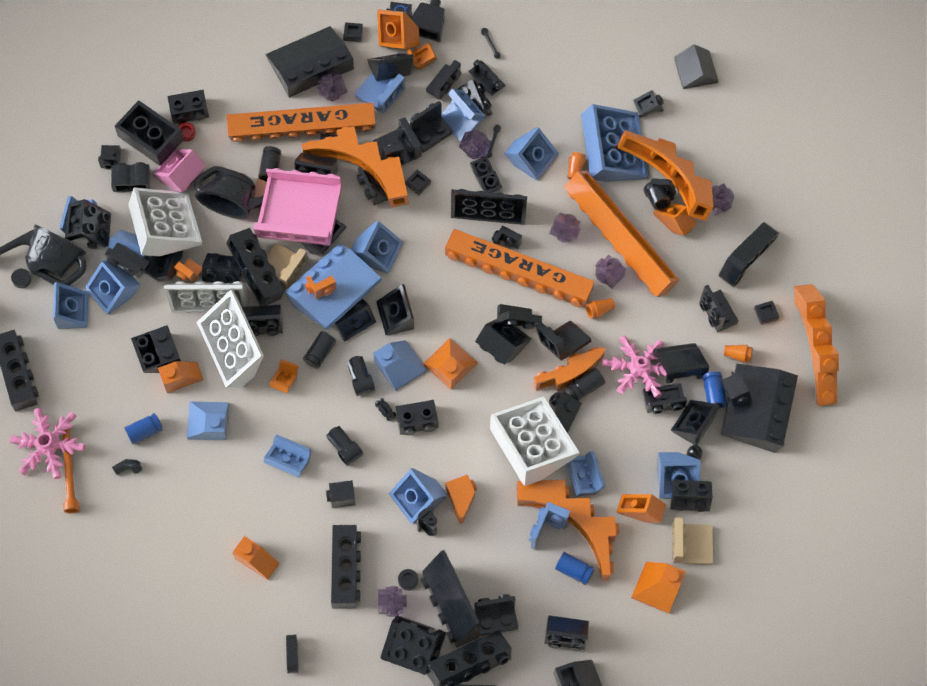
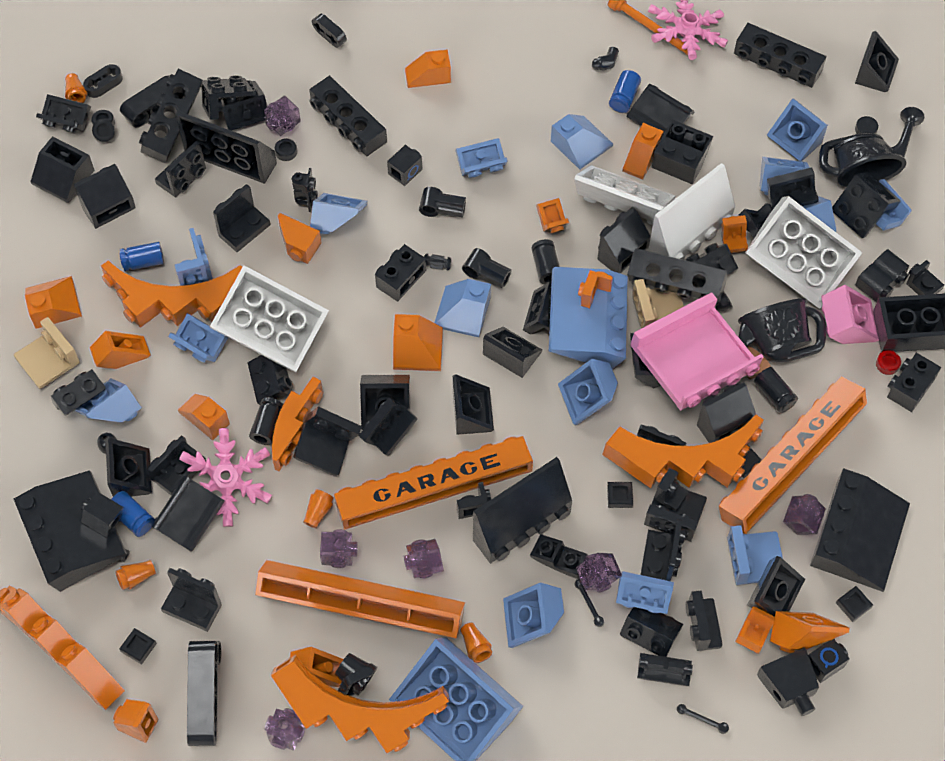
camera: 140 degrees right, 5 degrees down
(137, 393) = (658, 109): none -> black piece
(455, 296) = (471, 406): none -> black slope
(488, 539) = (239, 220): none -> black bracket
(621, 420) = (205, 415): none -> orange slope
(799, 264) = (135, 719): none -> orange slope

